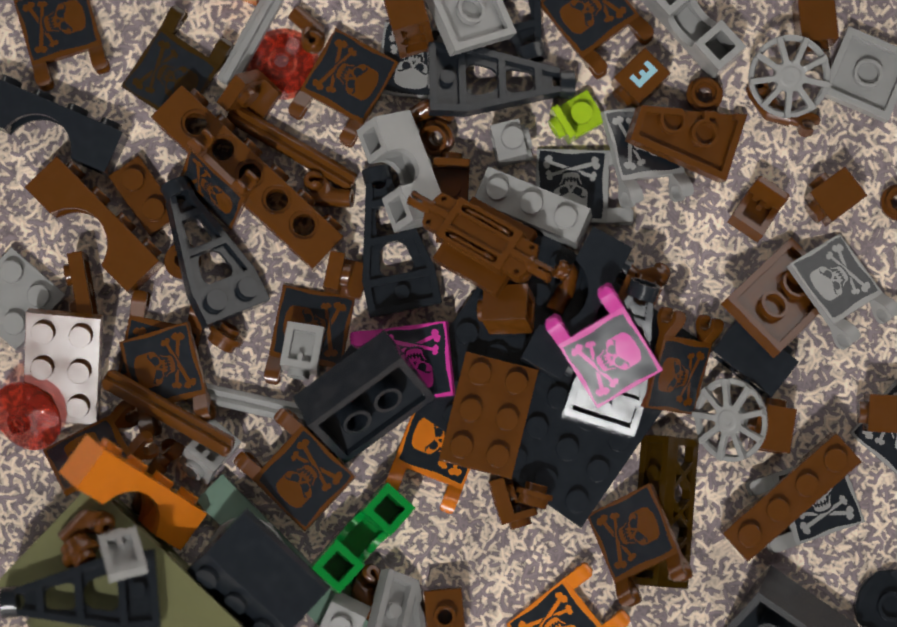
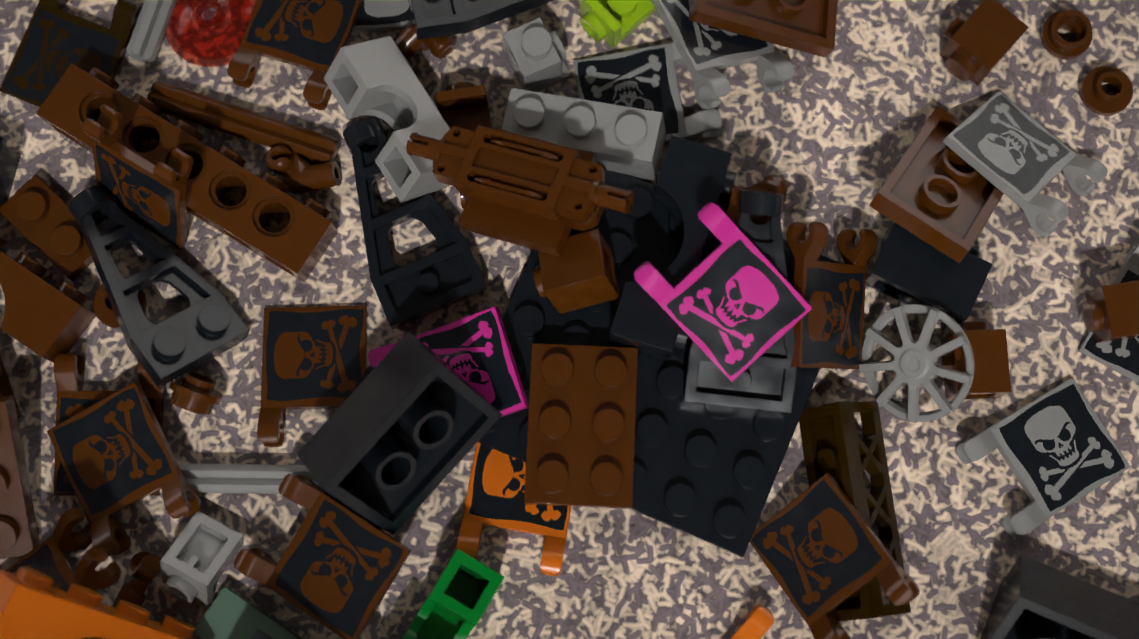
camera: 10 degrees left, 5 degrees down
(168, 412) = (130, 515): reddish brown axle -> none
(250, 91) = (170, 58): reddish brown bracket -> none
(302, 350) = (303, 389): light grey bracket -> none
(343, 276) = (341, 278): reddish brown bracket -> none
(427, 133) = (423, 66): reddish brown plate -> none
(504, 498) = (627, 540): reddish brown bracket -> none
(534, 495) = (668, 524): reddish brown plate -> none
(566, 288) = (652, 228): reddish brown arm -> none
(758, 208) = (886, 75): reddish brown bracket -> none
(791, 496) = (1015, 470): reddish brown arch -> none

